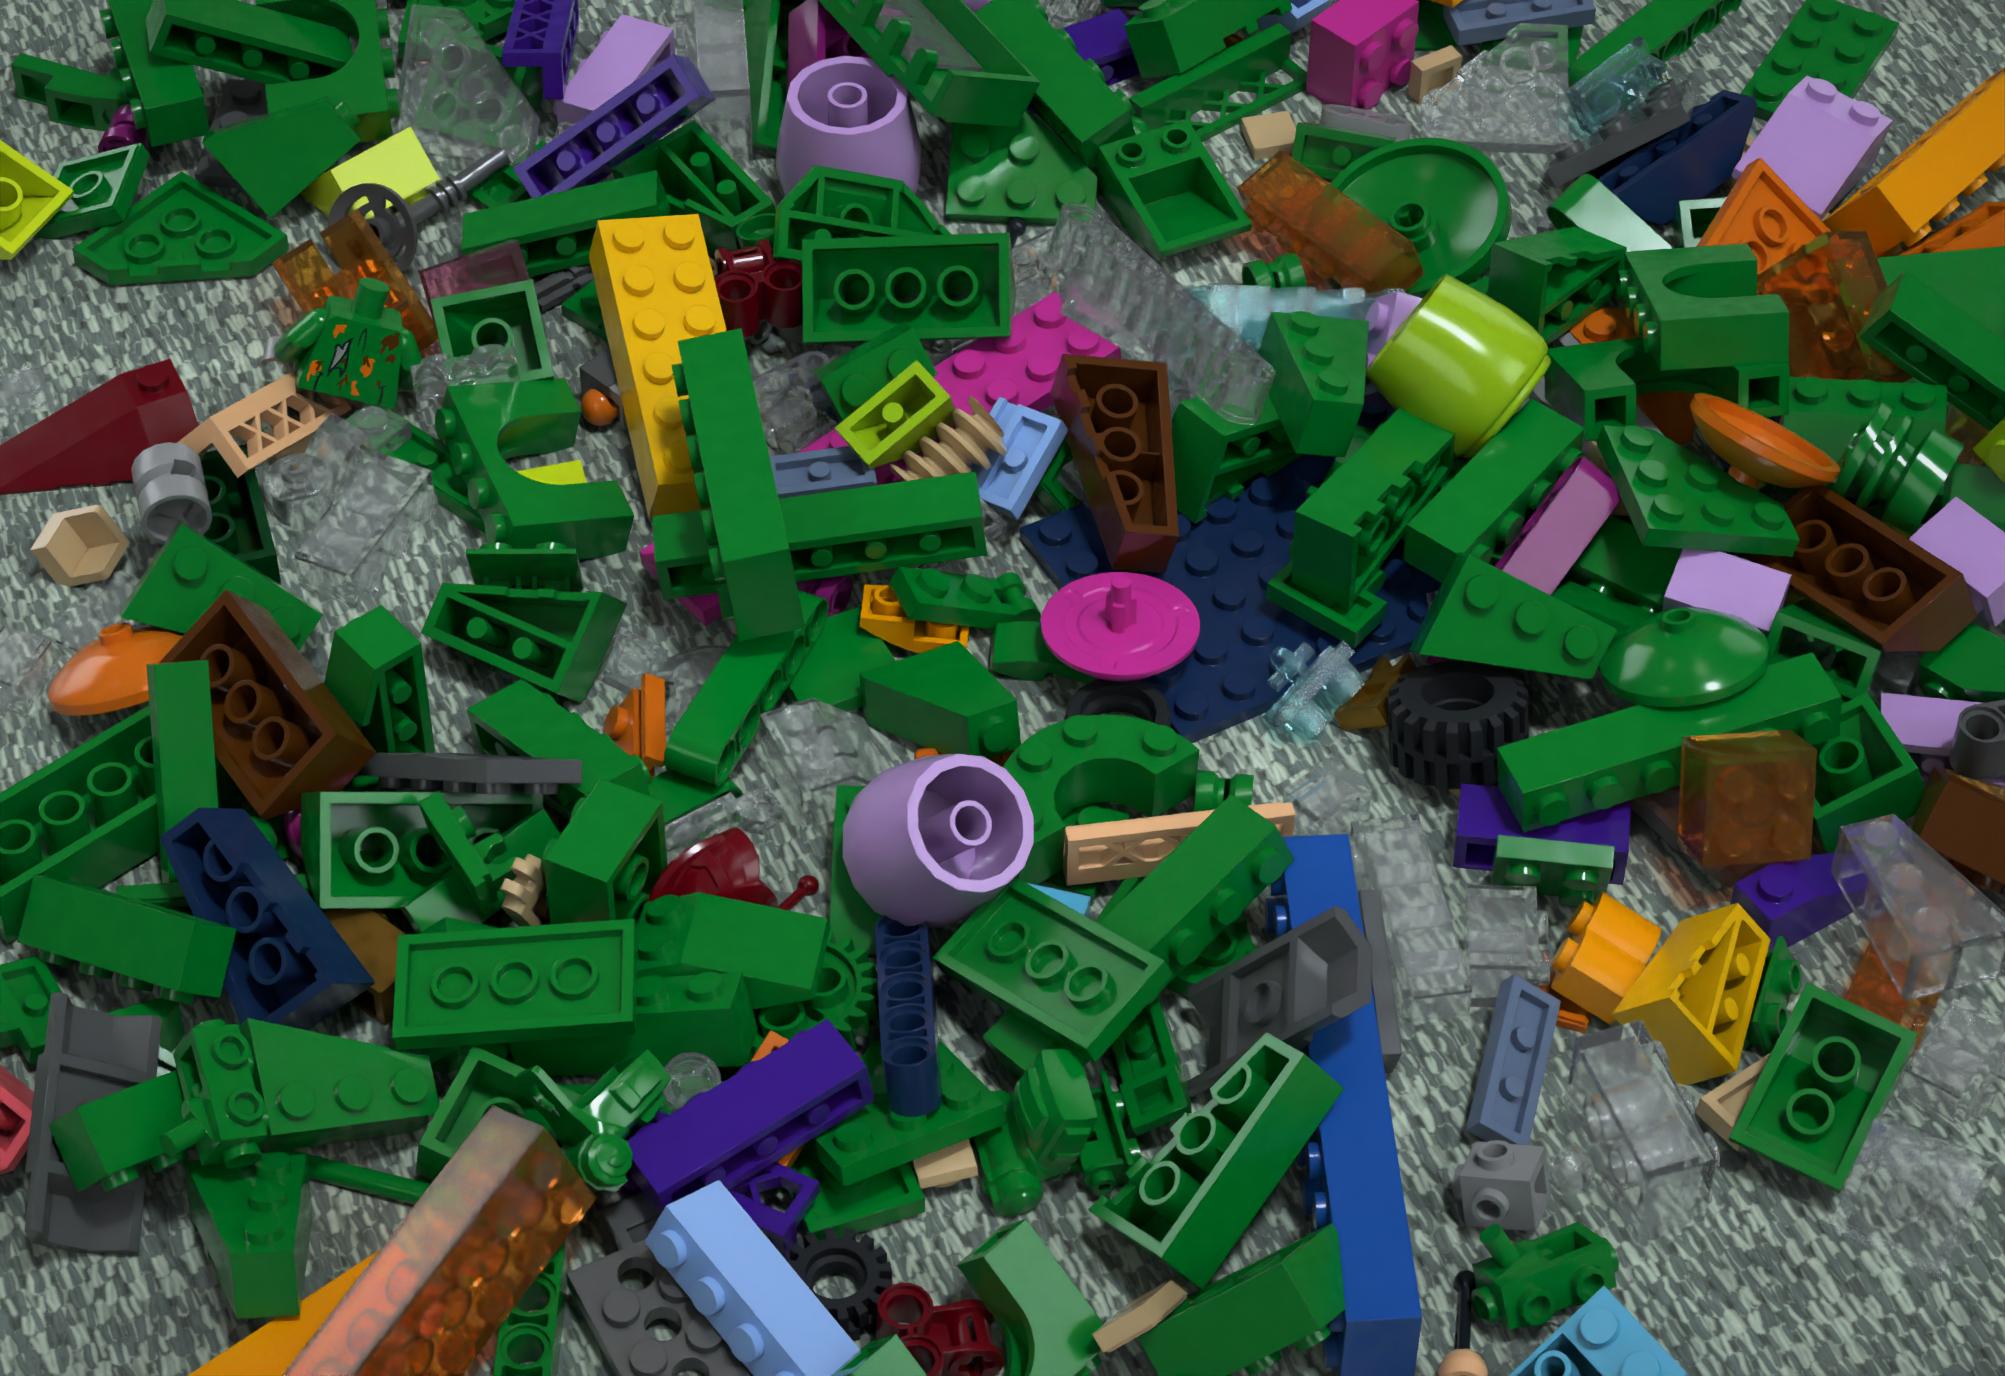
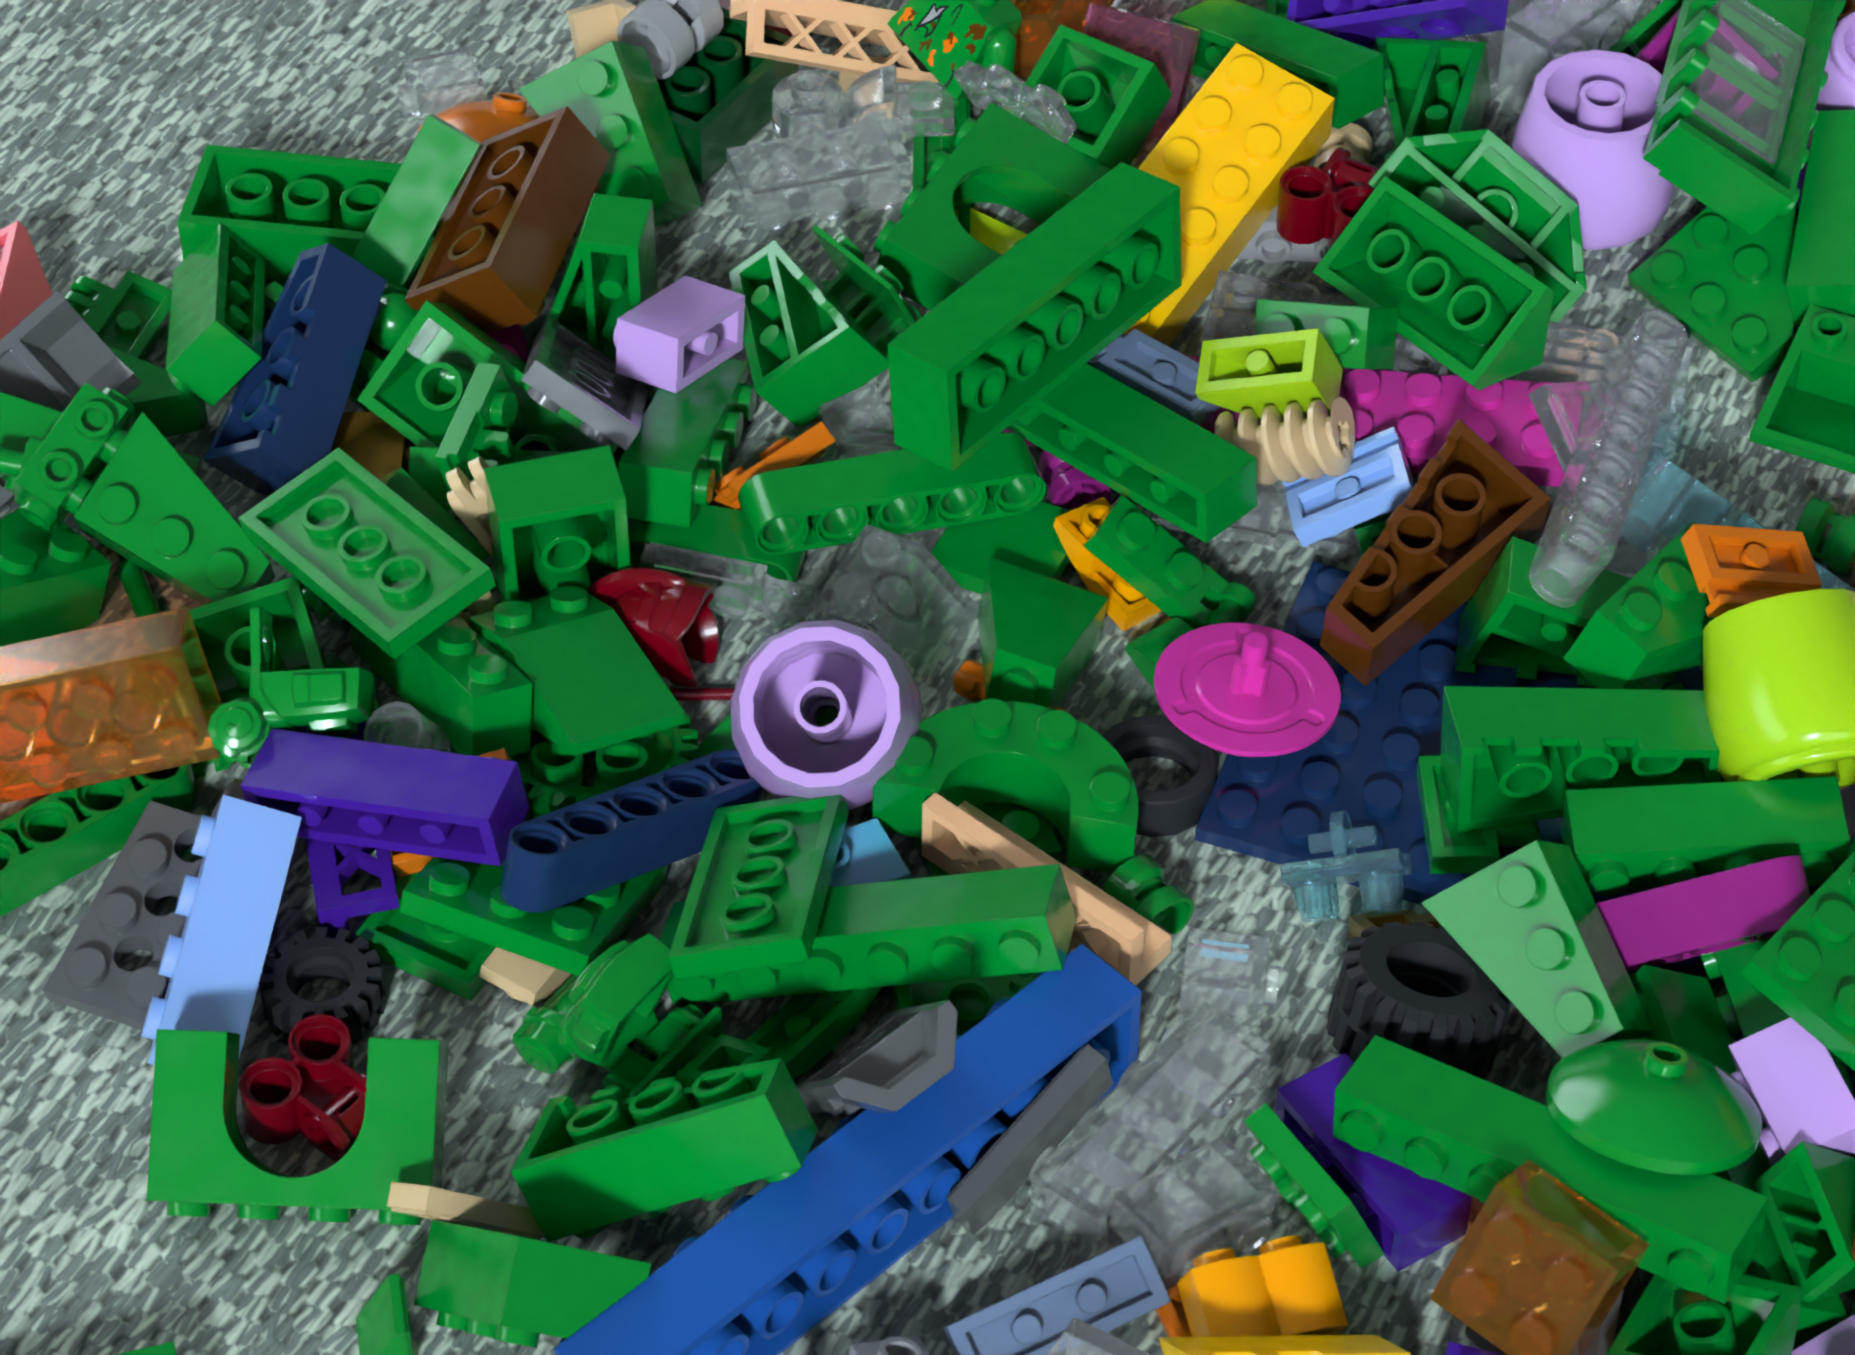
camera: 50 degrees right, 0 degrees up
(471, 691) = (679, 334): none -> lavender brick
(1354, 312) = (1747, 564): none -> orange plate

